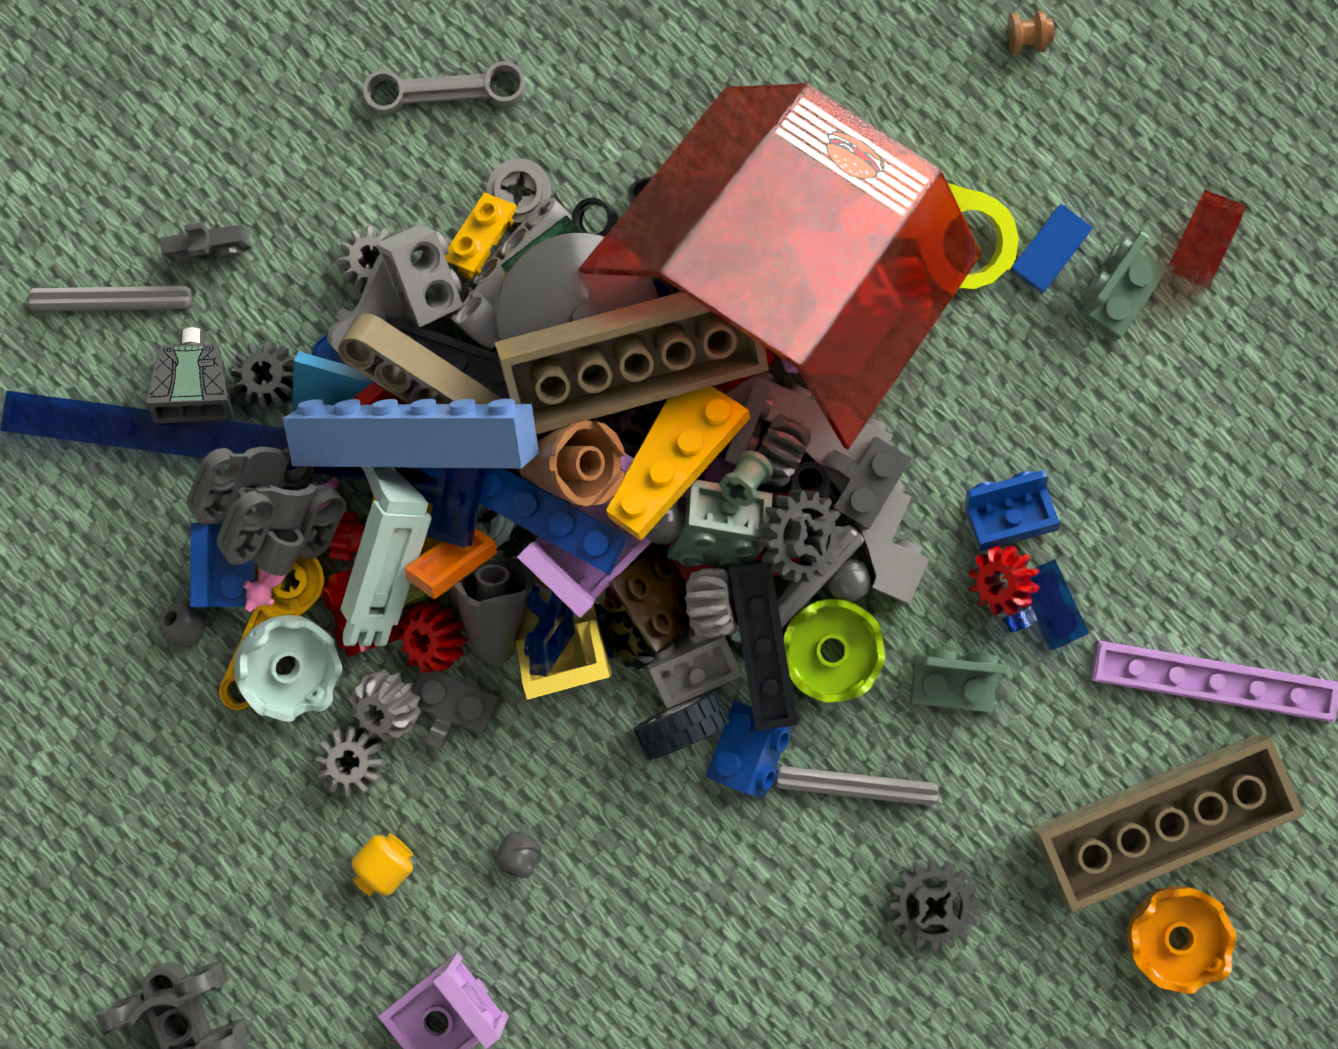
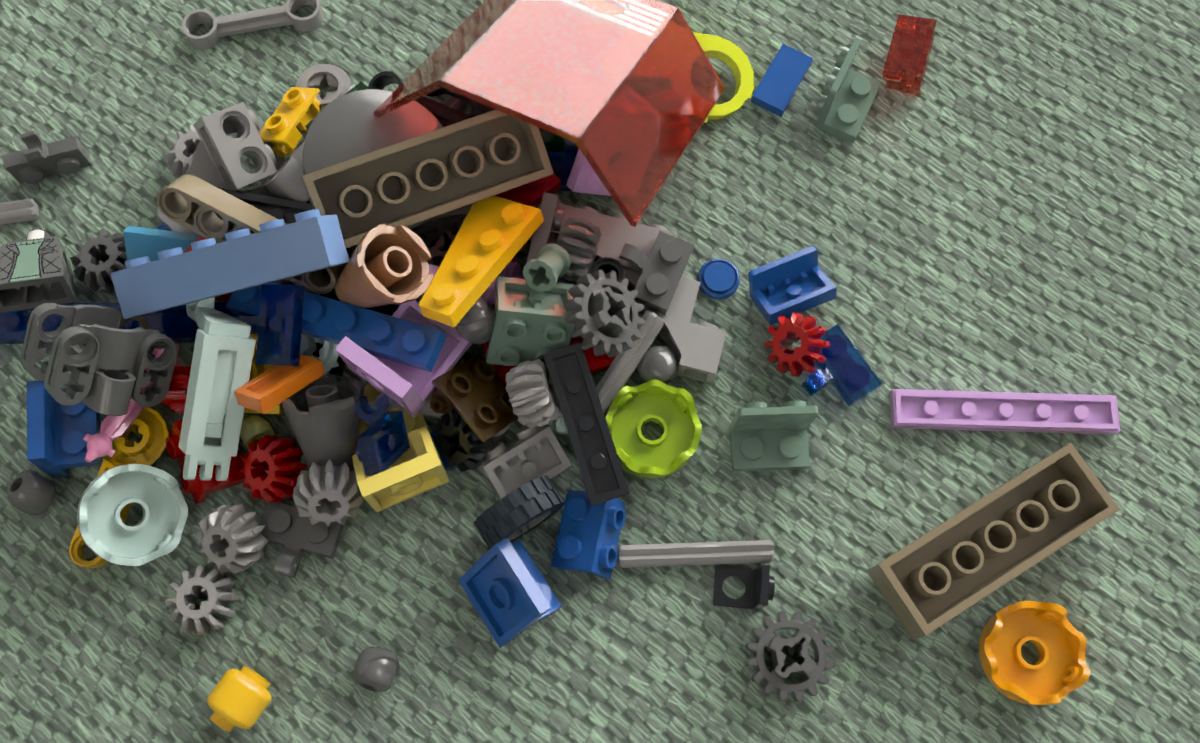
camera: 15 degrees left, 15 degrees down
(488, 677) = (327, 493): none -> light grey gear
(660, 800) = (508, 591): none -> blue bracket
(914, 831) = (758, 587): none -> black bracket
(933, 484) = (718, 279): none -> blue piece

